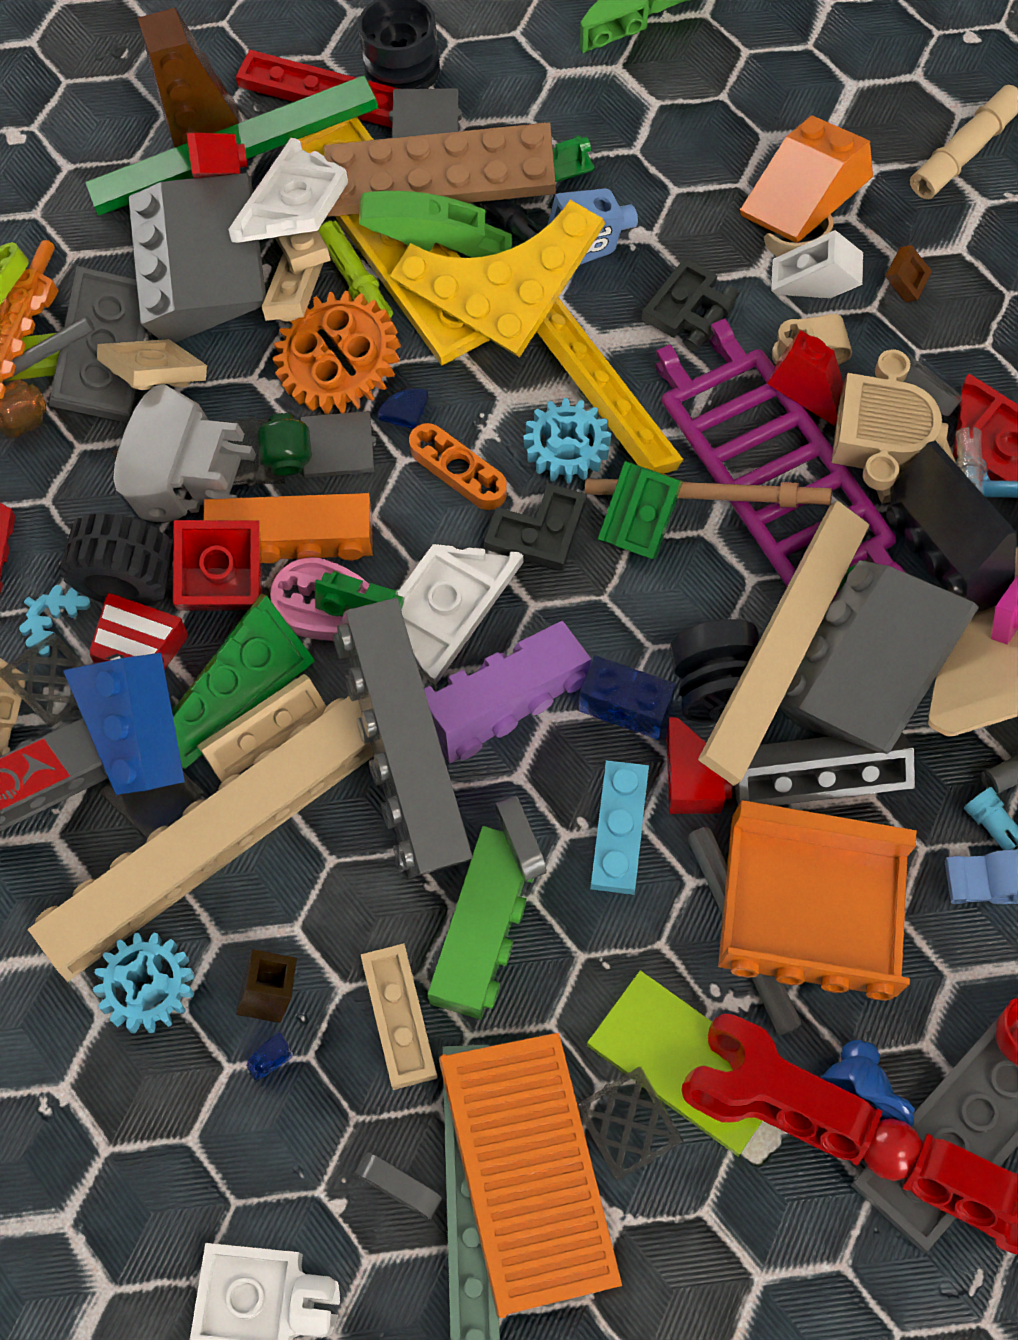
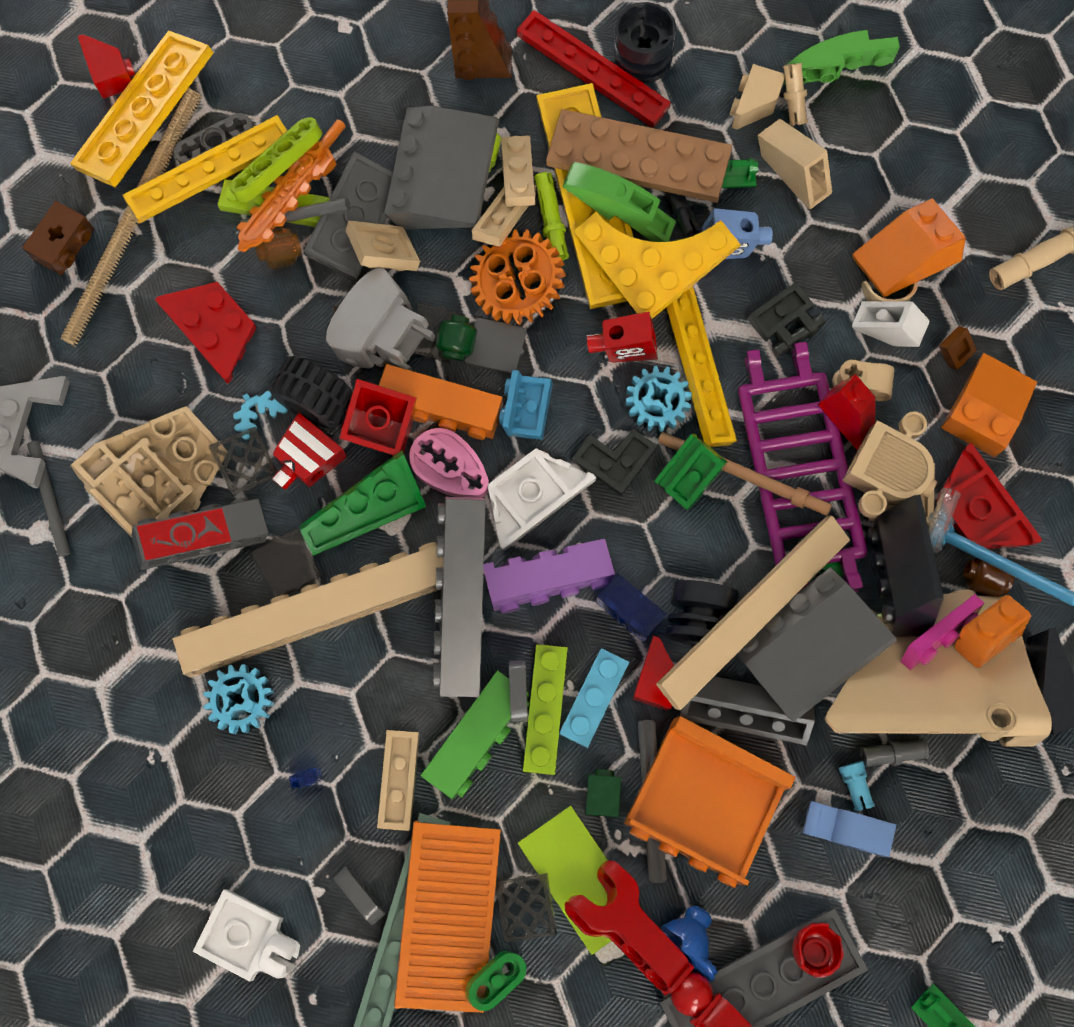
camera: 20 degrees right, 10 degrees up
(129, 721) = (282, 515): blue wedge -> none
(215, 154) = (477, 97): red slope -> none
(258, 135) = (497, 85): tile -> none
(262, 728) = (374, 545): tan plate -> none
(266, 986) = (317, 731): dark brown brick -> none
(291, 196) = (521, 147): white wing -> none
(340, 593) = (457, 468): green hinge -> none
(403, 499) = (526, 406): none -> dark azure bracket
(404, 407) = (552, 334): clear blue tile -> none
(425, 111) = (645, 104): dark grey piece -> none
(451, 450) = (557, 378): orange beam -> none
(502, 380) = (626, 339): none -> red torso
(560, 68) = (759, 96): none -> tan slope
(567, 876) = (545, 709): none -> lime plate
(603, 51) = (795, 94): none -> tan pin
(623, 1235) = (496, 983): none -> green plate
(634, 124) = (797, 162): none -> tan slope
(677, 941) = (603, 794): none -> dark green brick
(942, 393) = (938, 443): dark grey beam -> none
(973, 329) = (990, 406): none -> orange slope

